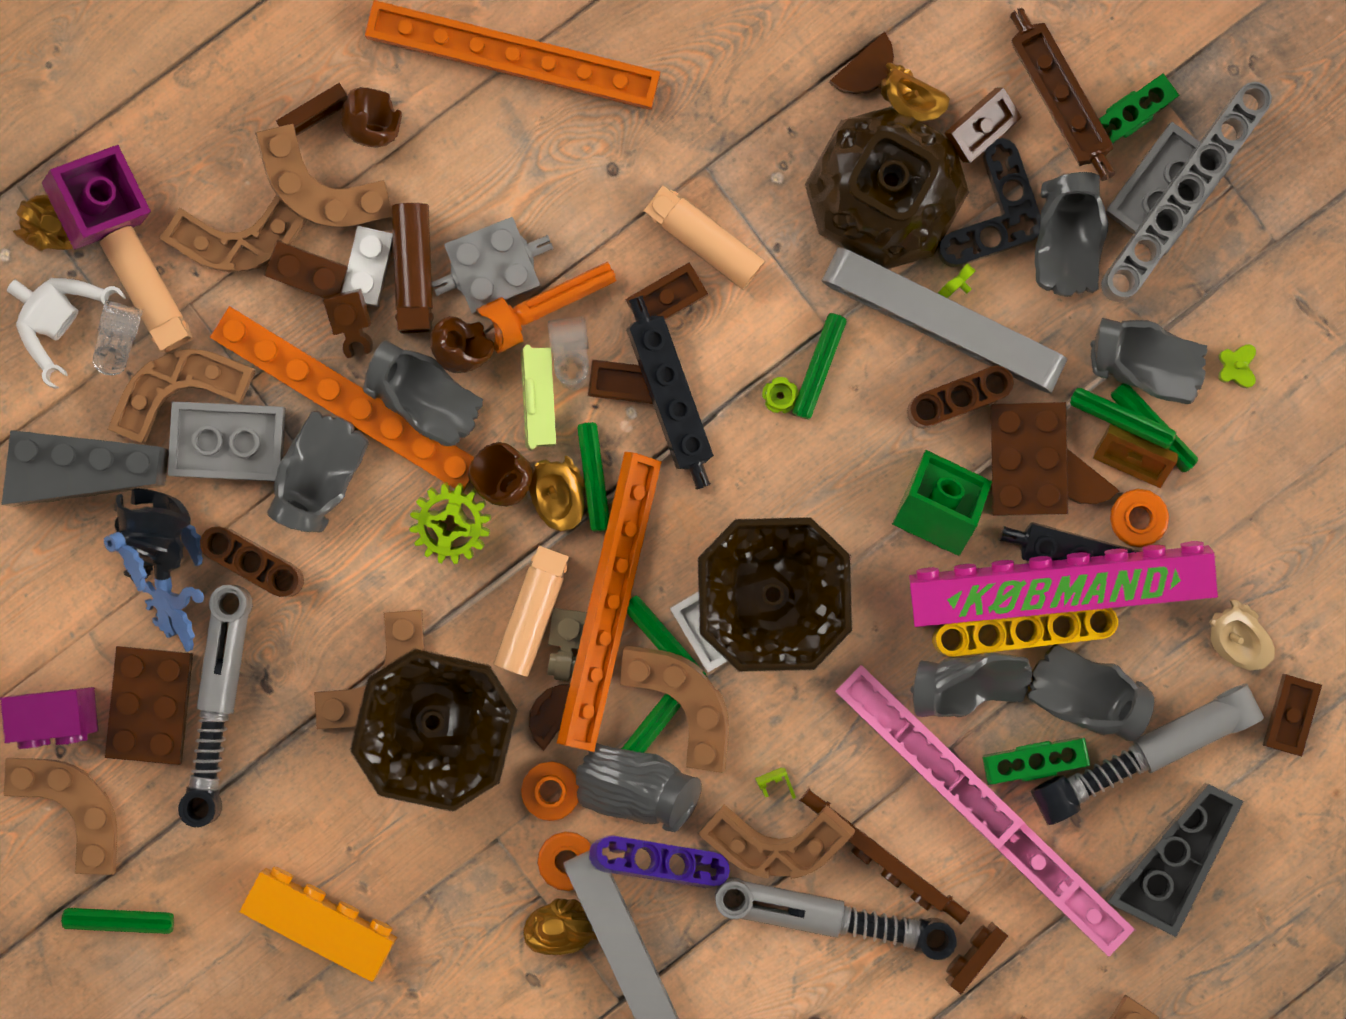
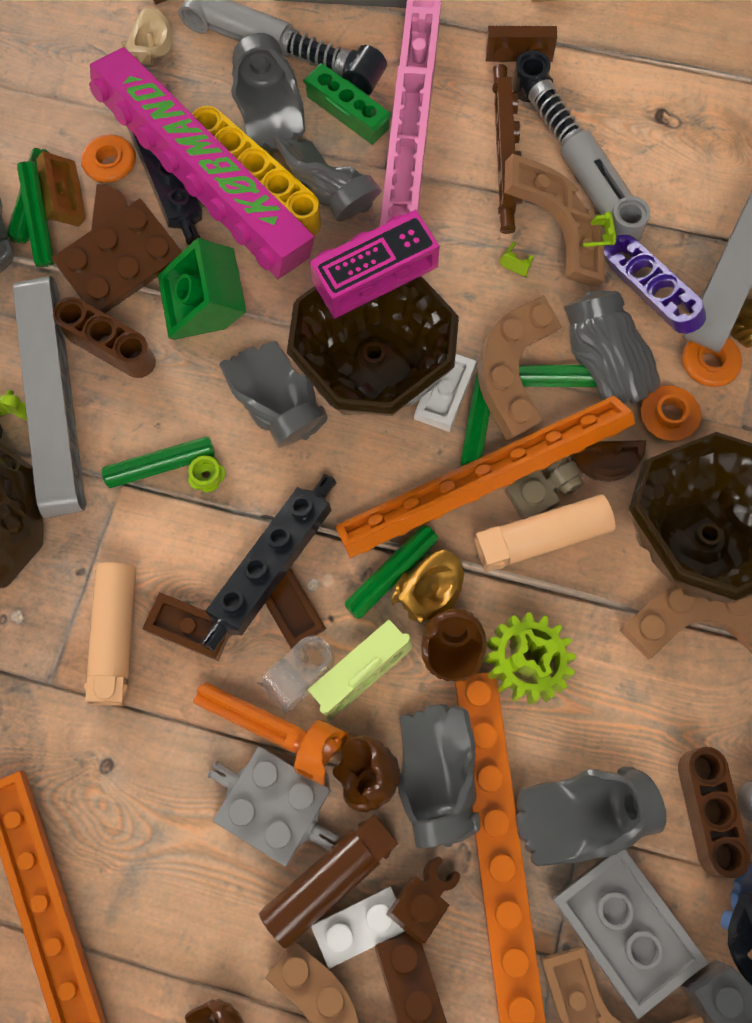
camera: 120 degrees left, 15 degrees down
(732, 869) = (607, 222): none -> lime piece
(806, 489) = (274, 393): none -> dark grey hair
(824, 633) = (374, 263): none -> dark pink brick

